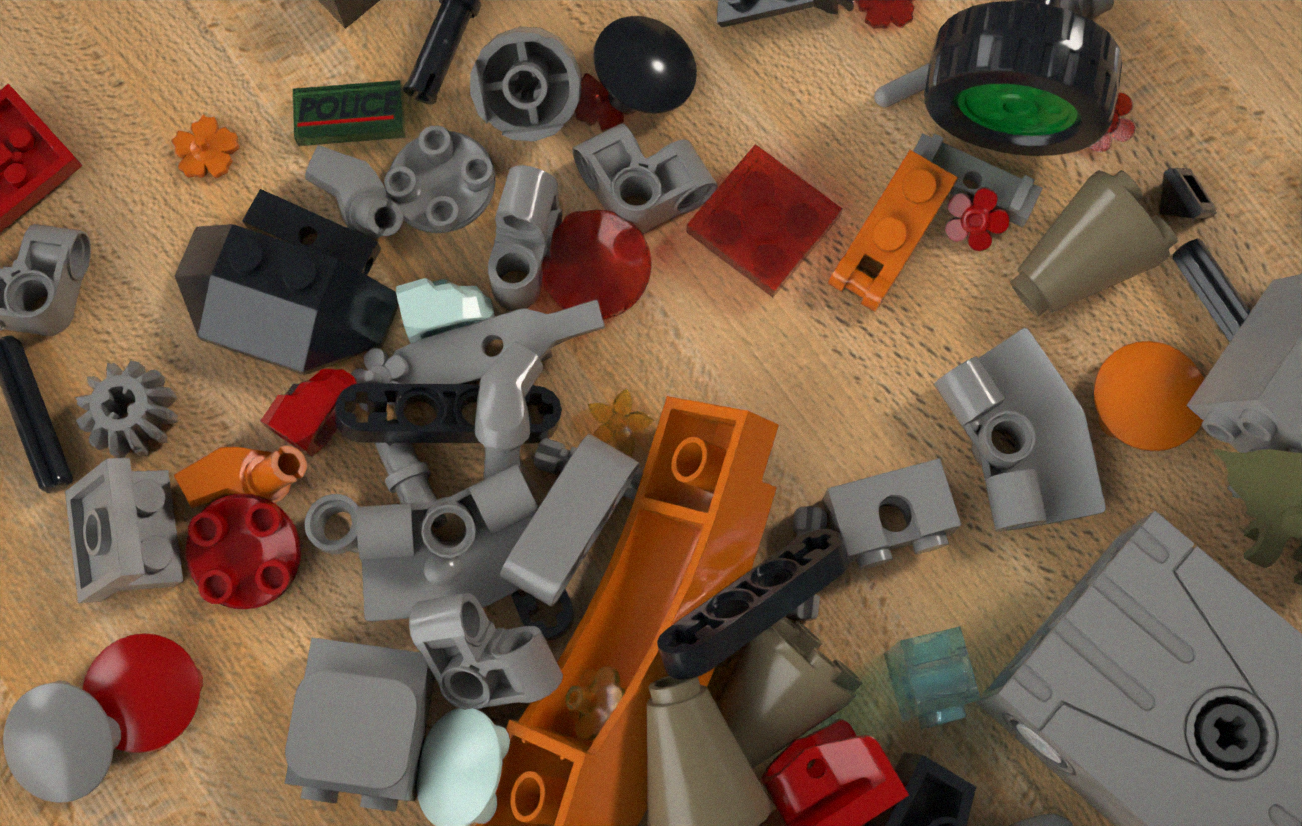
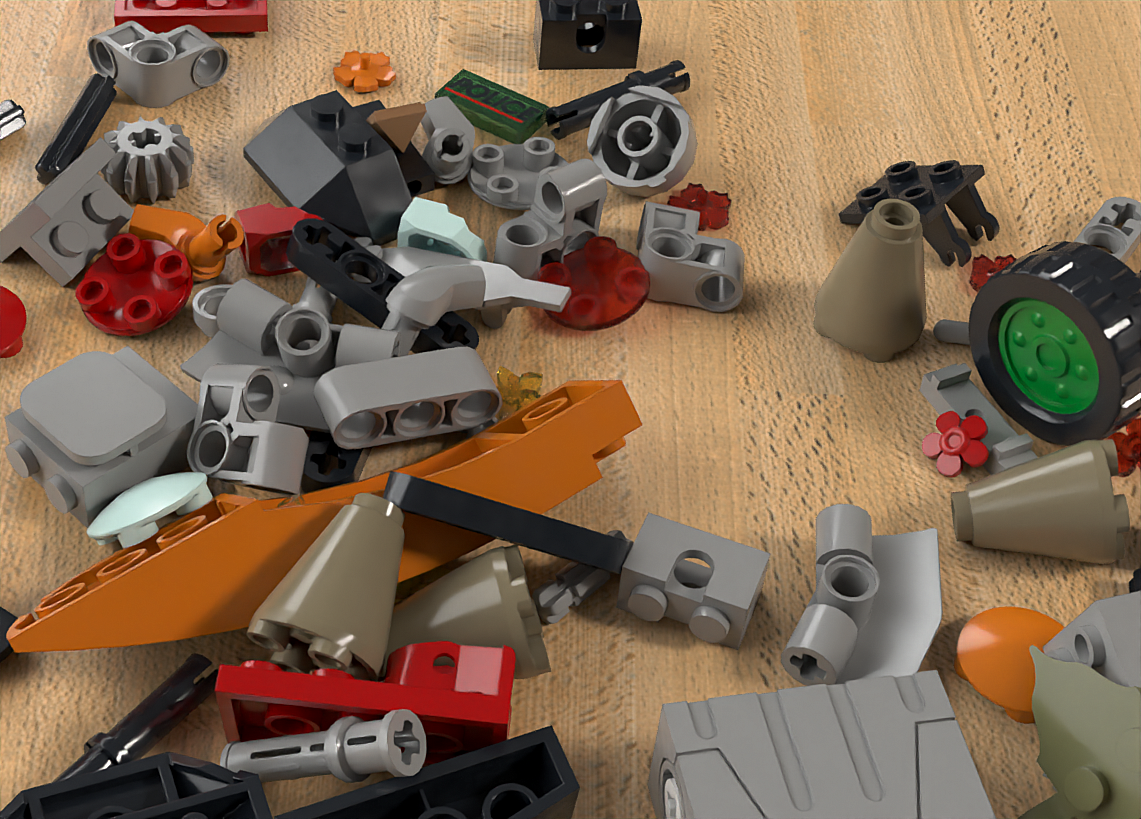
camera: 30 degrees right, 30 degrees down
(309, 218) = (398, 124): none -> medium nougat slope
(644, 65) = (751, 197): black dish -> none
(764, 220) = (763, 339): clear red plate -> none
(821, 114) = (877, 285): none -> dark tan cone
(894, 228) = (871, 404): orange plate -> none
(932, 677) = (616, 694): clear light blue brick -> none

